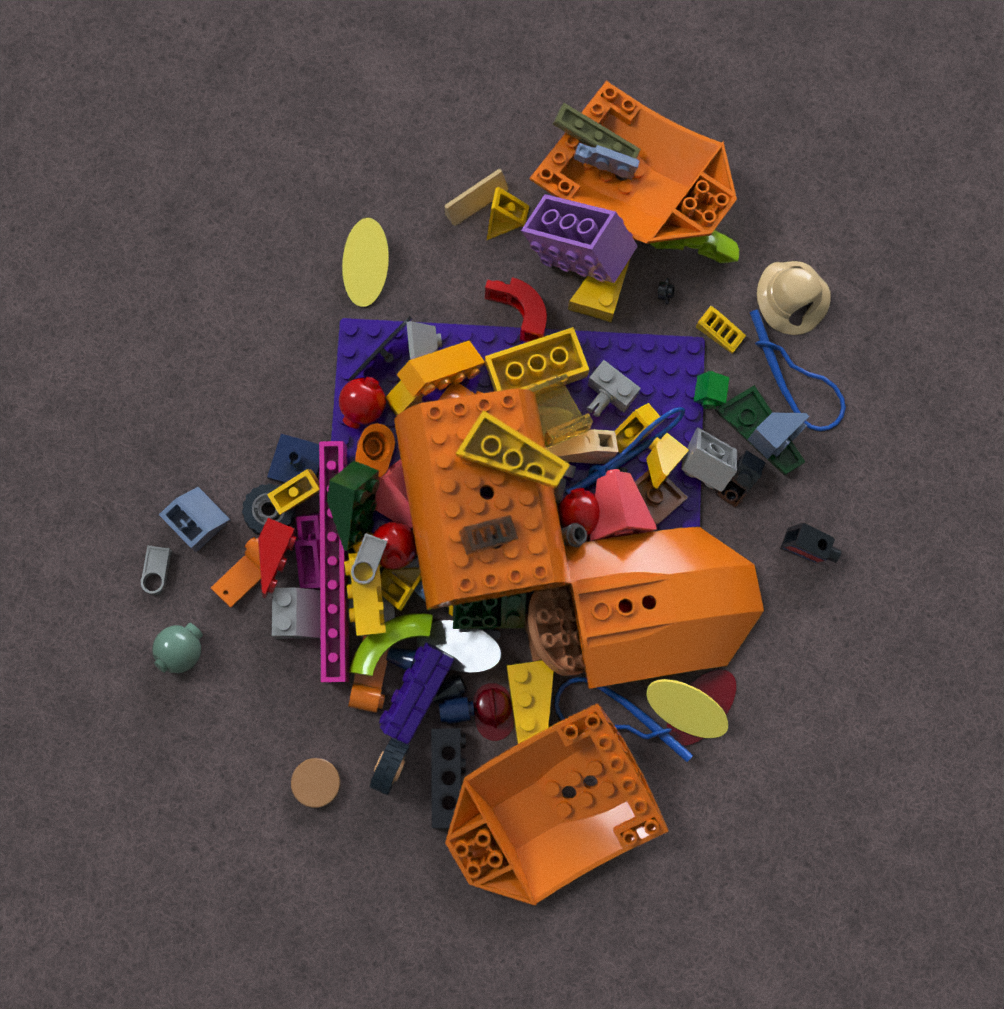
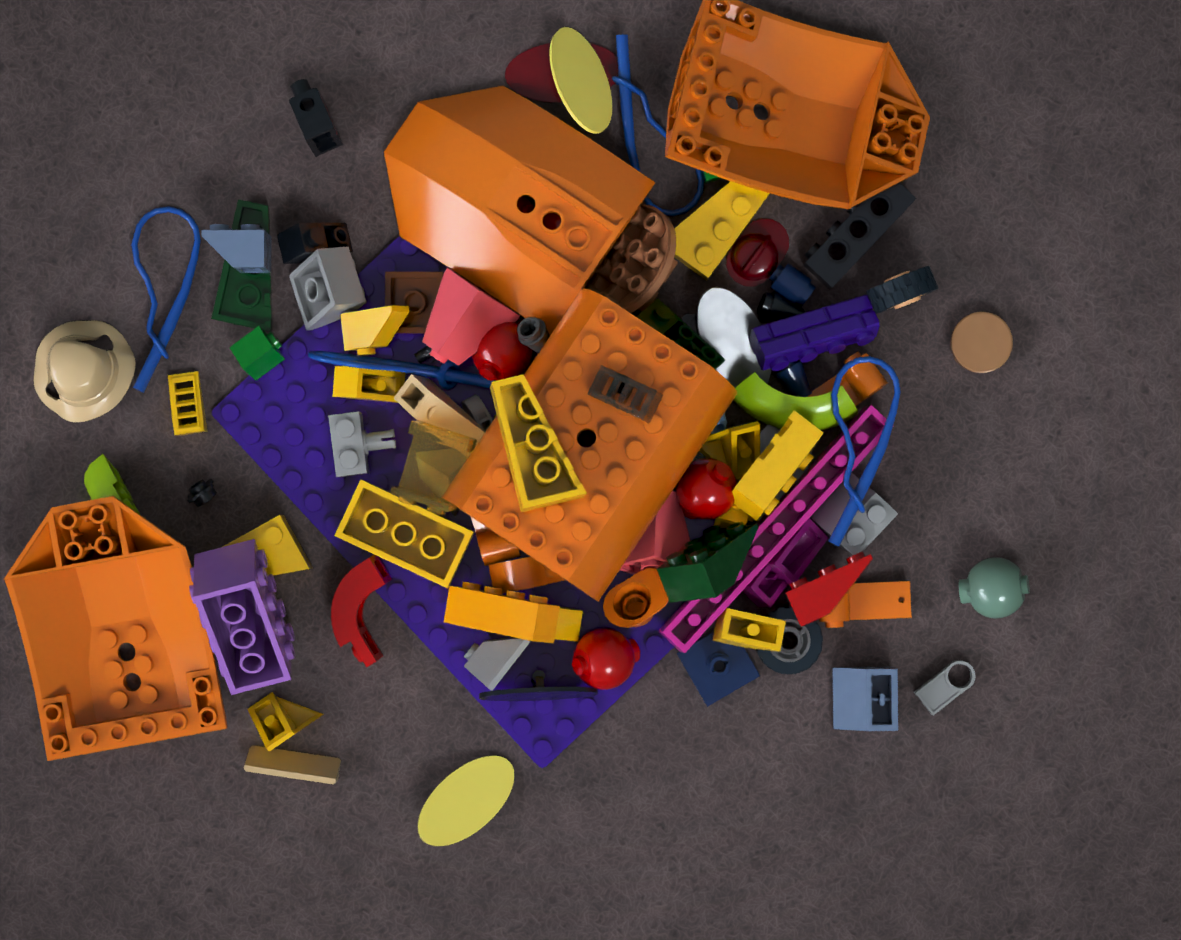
camera: 130 degrees left, 10 degrees up
(308, 637) = (857, 495): none -> blue piece
(370, 553) = (740, 496): light grey piece -> none
(591, 132) = (118, 708): olive tile -> none
(607, 160) = (132, 674): sand blue hinge -> none

